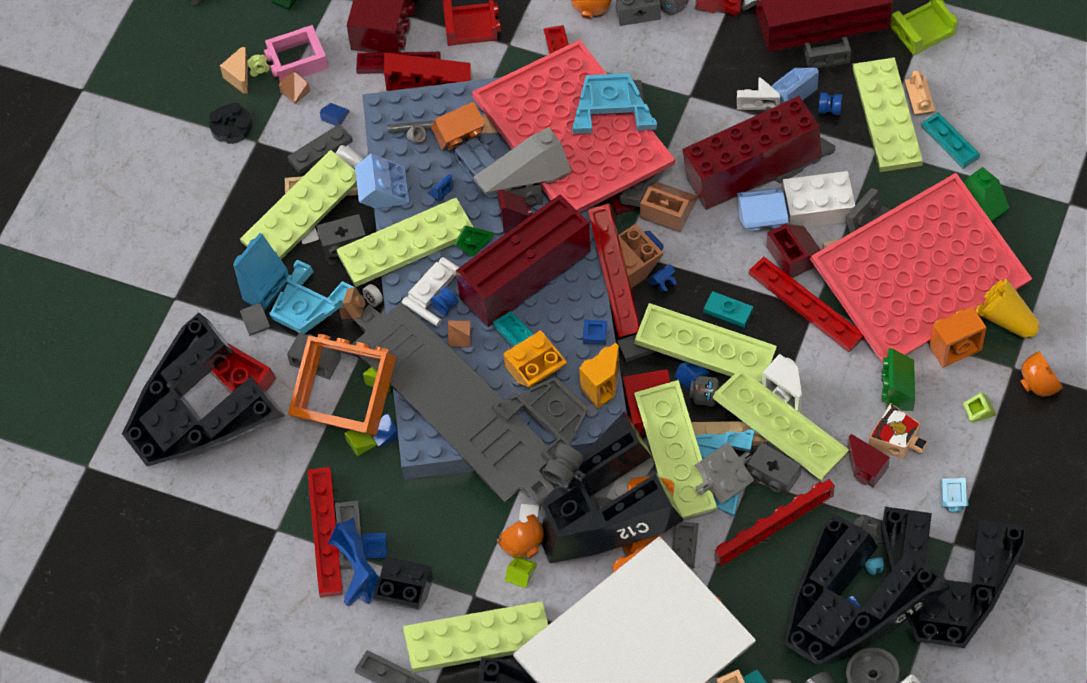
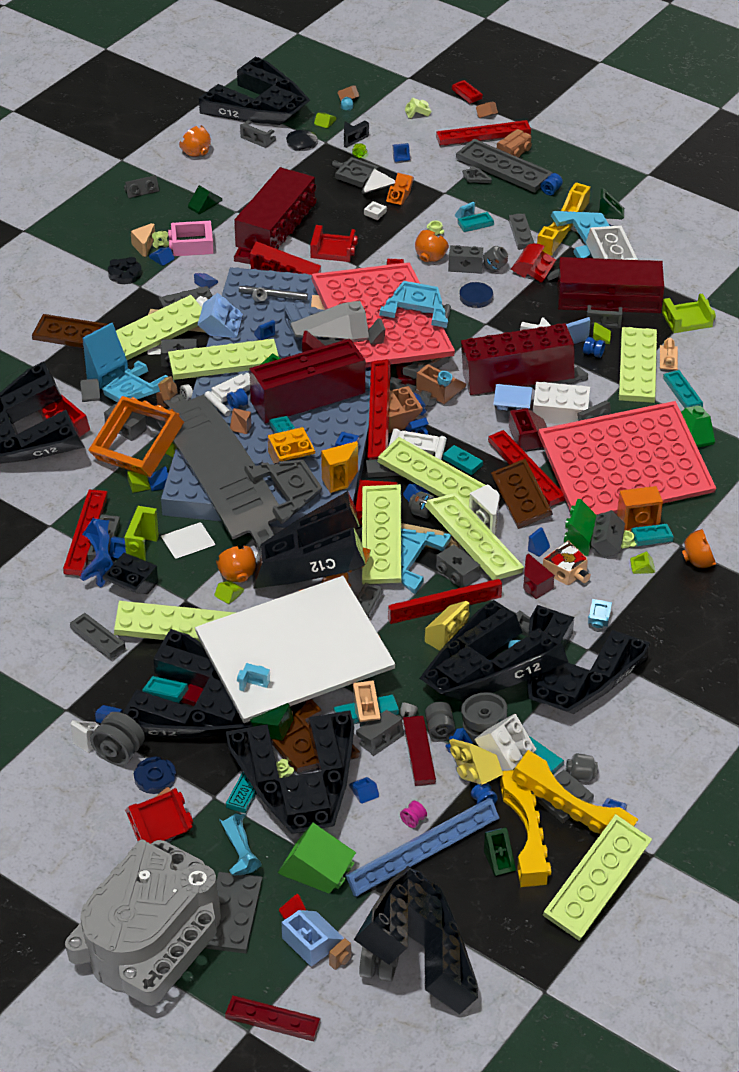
camera: 10 degrees right, 15 degrees down
(198, 234) = (64, 330): none -> reddish brown tile
(267, 88) = (162, 256): none -> blue slope
(294, 87) = (182, 257): nougat slope -> none
(395, 509) = (142, 527): none -> lime panel
(447, 509) = (188, 540): none -> white sticker
(458, 126) = (291, 290): orange brick -> none
(564, 463) = (284, 516): dark grey wheel -> none
(579, 163) = (377, 332): none -> dark grey slope
(624, 222) = (395, 383): none -> dark grey plate
(665, 55) = (476, 294): none -> dark blue tile
(672, 299) = (428, 443): none -> white plate
(682, 206) = (444, 374): none -> medium azure hinge
(724, 473) = (415, 556): light grey plate -> none
(790, 559) = (447, 624): none -> light yellow slope
(813, 344) = (521, 493): none -> reddish brown tile
(831, 80) = (601, 333): none -> lime slope
(854, 410) = (538, 542): none -> blue slope
(931, 380) = (608, 534): none -> dark grey brick
(950, 373) = (628, 540): none -> yellowish green plate
(978, 364) = (652, 534): none -> teal plate
(1008, 310) = (688, 501): yellow cone -> none

